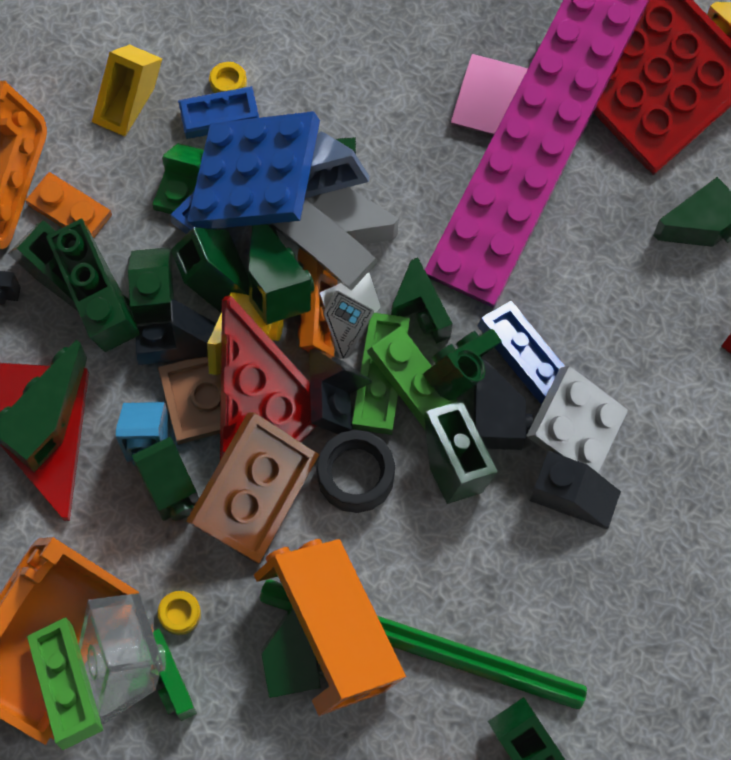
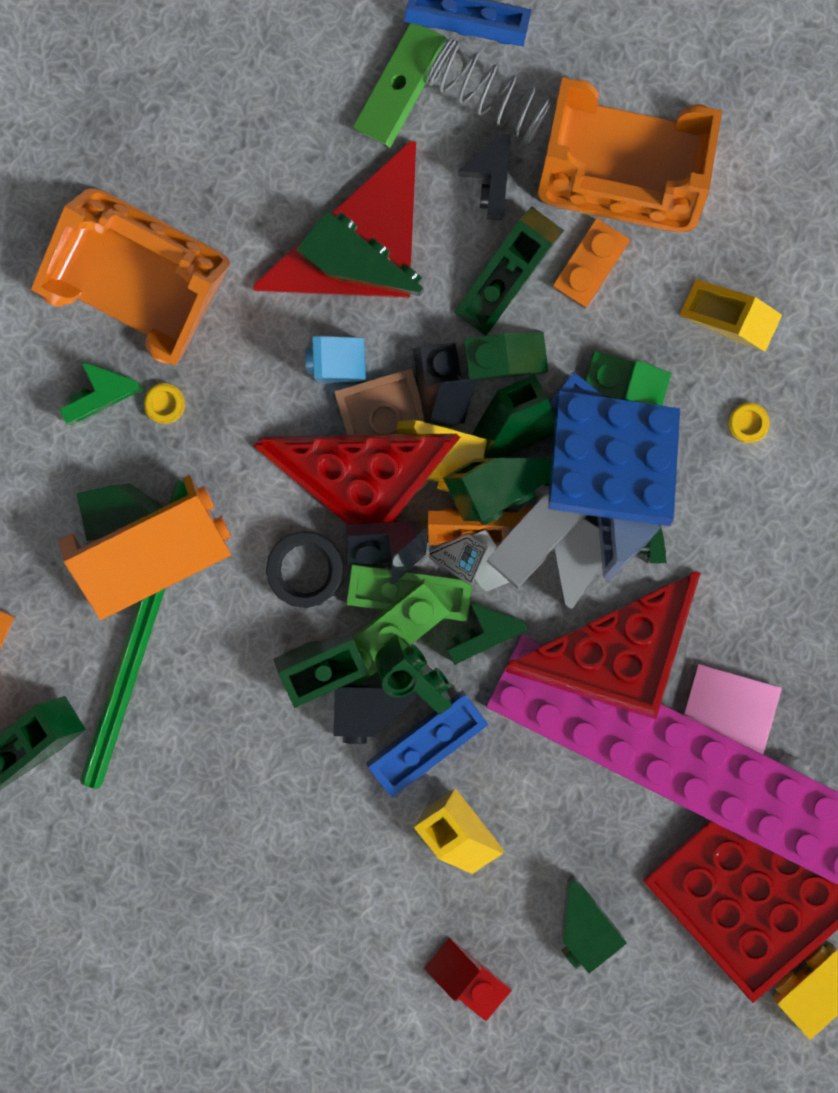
camera: 90 degrees right, 20 degrees up
(64, 684) = (86, 302): bright green plate -> none
(92, 286) = (486, 298): dark green slope -> none
(120, 653) = (108, 352): clear slope -> none
(167, 480) = (283, 387): dark green slope -> none
(225, 106) = (705, 415): blue plate -> none
(253, 487) = (280, 470): dark orange plate -> none
(442, 179) = (619, 656): none -> red tile
(575, 490) = (287, 783): black slope -> none
(577, 419) = (356, 788): light grey plate -> none
(616, 329) = (457, 833): none -> yellow slope

